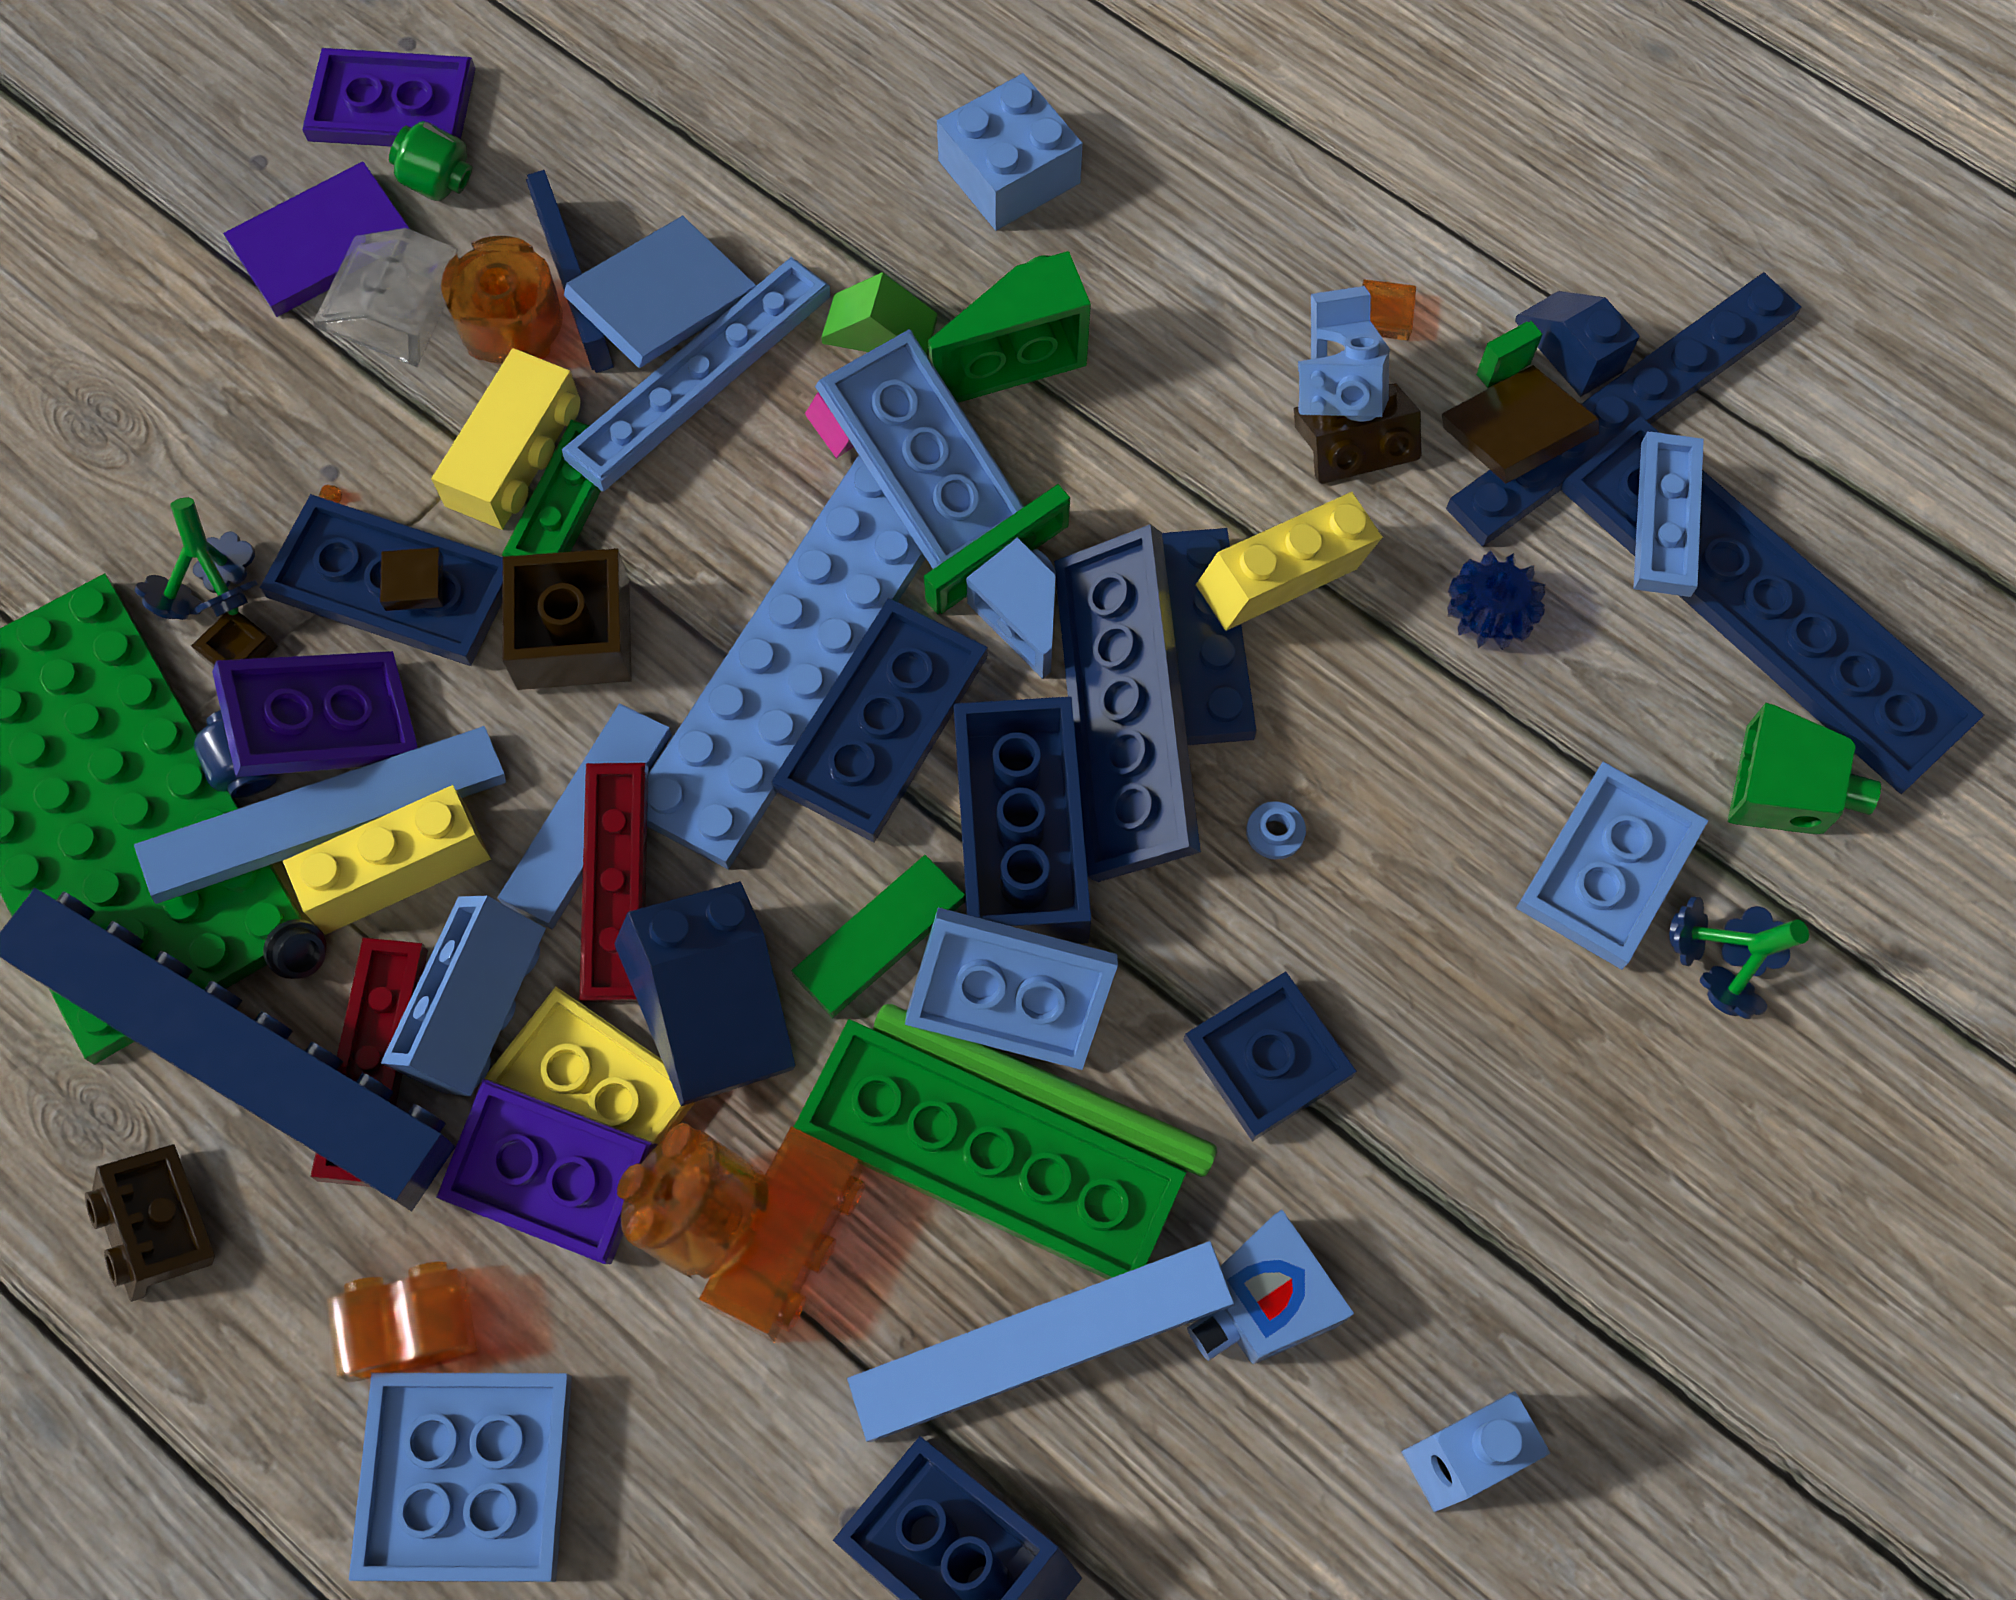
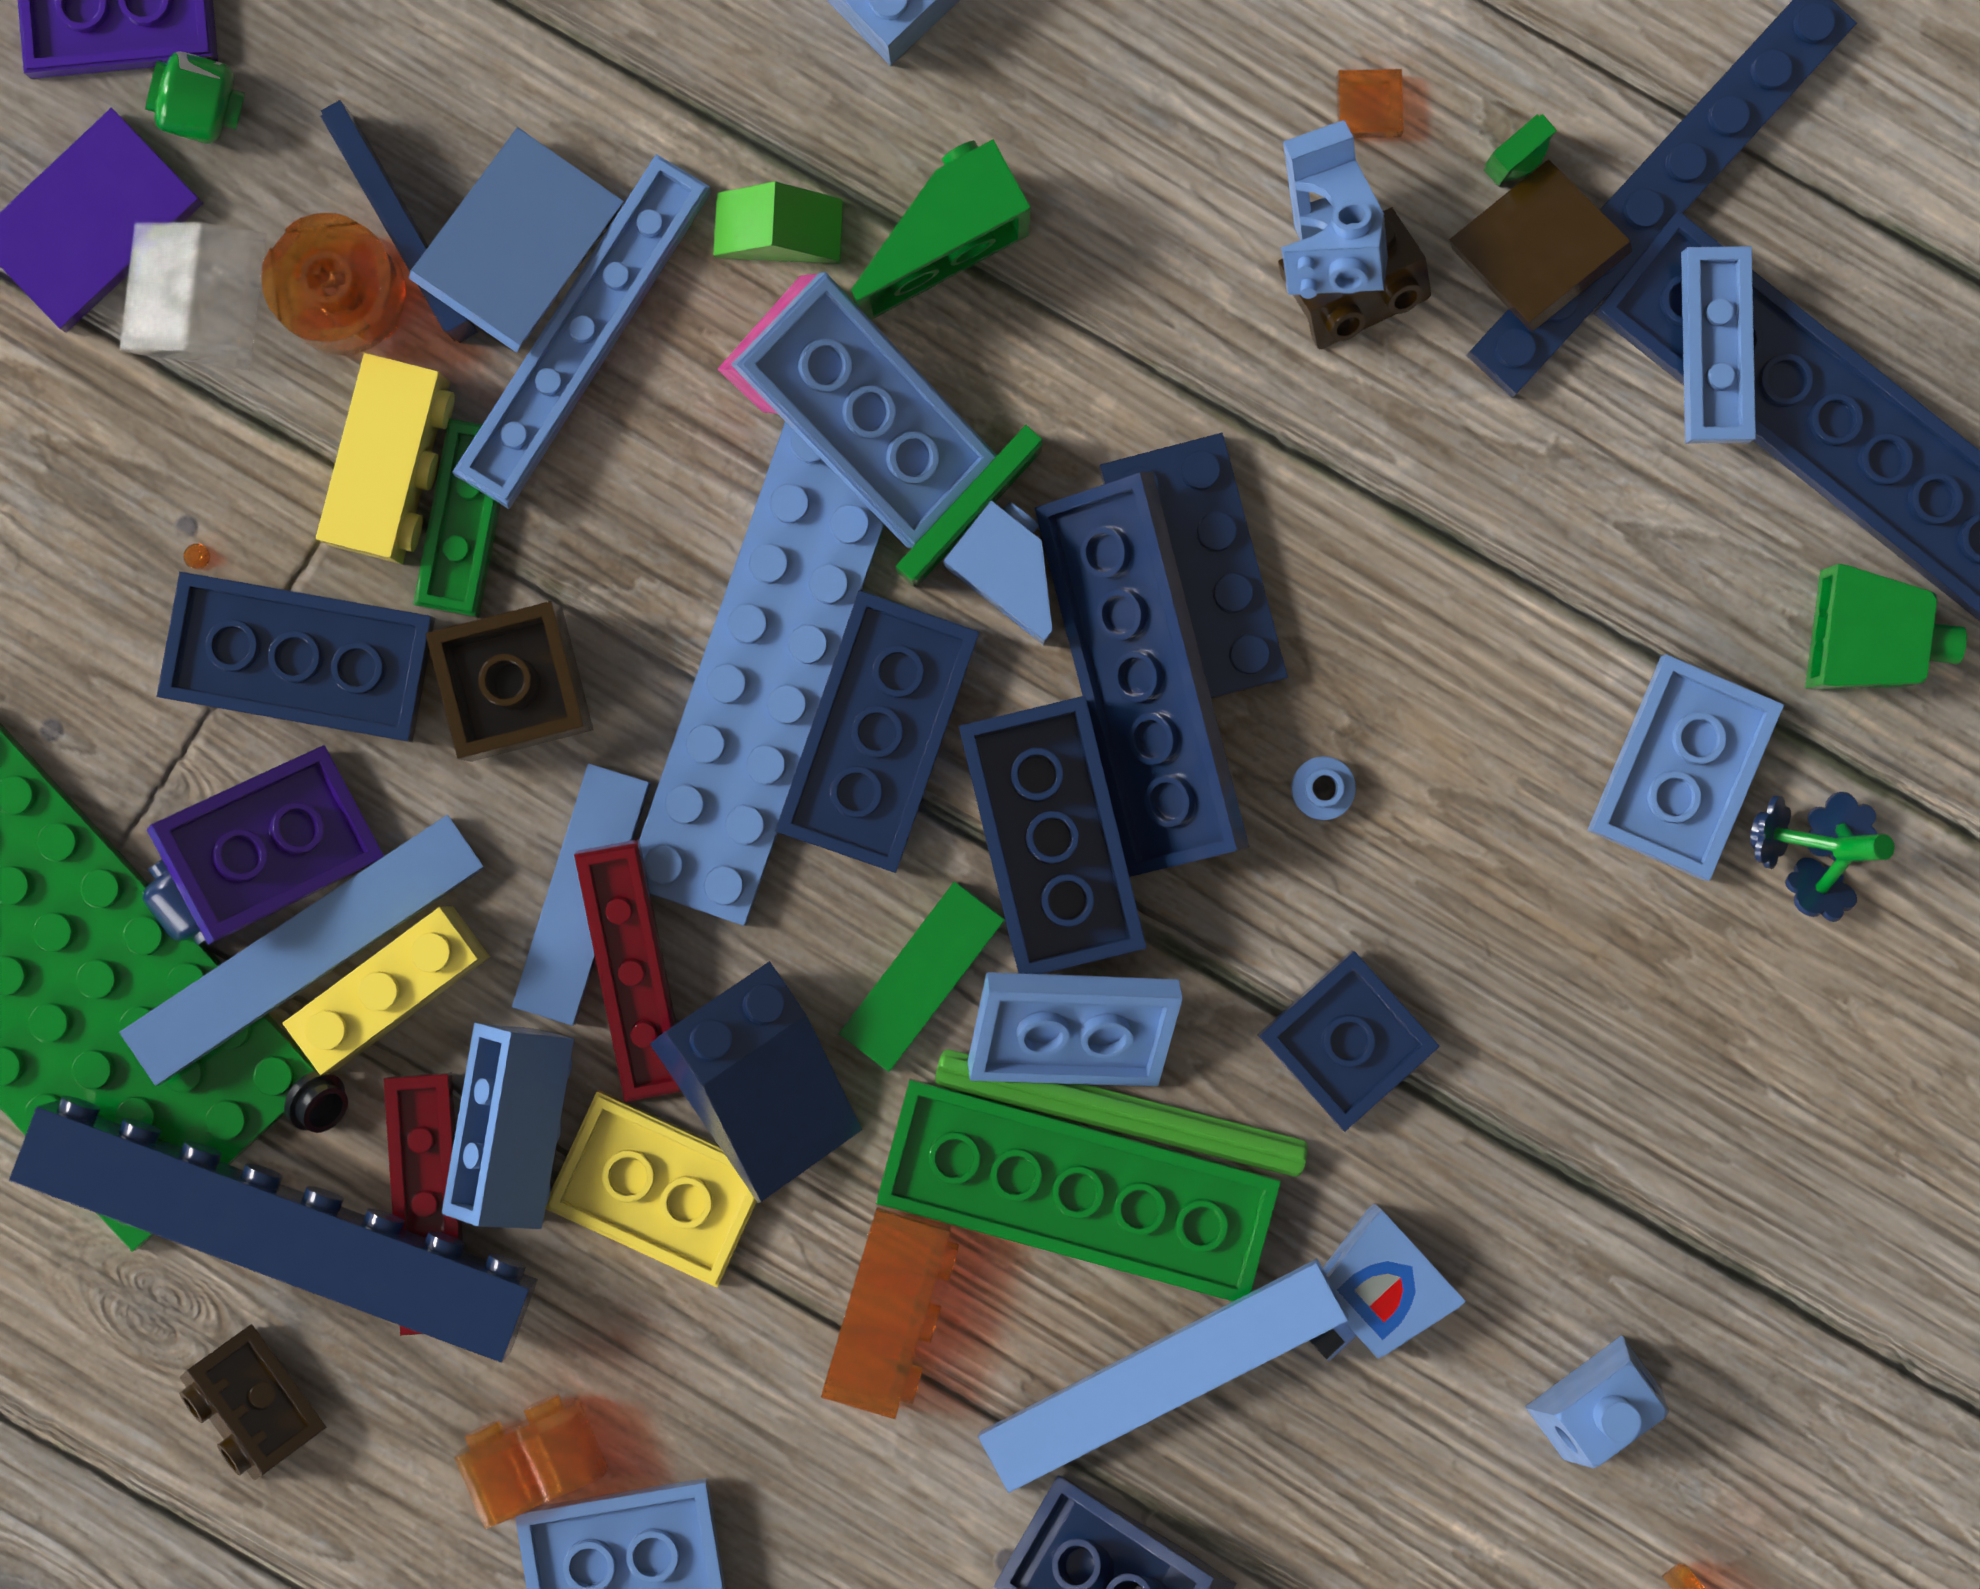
camera: 10 degrees left, 20 degrees up
(219, 564) = (102, 669): dark blue plant -> none
(233, 639) = (144, 762): dark brown tile -> none
(411, 579) = (325, 663): dark brown tile -> none
(543, 1170) = (635, 1286): dark purple tile -> none
(692, 1203) = (794, 1308): clear orange brick -> none
(1288, 560) = (1299, 477): light yellow brick -> none
(1513, 587) = (1551, 463): clear blue gear -> none
(1582, 338) = (1596, 108): dark blue slope -> none

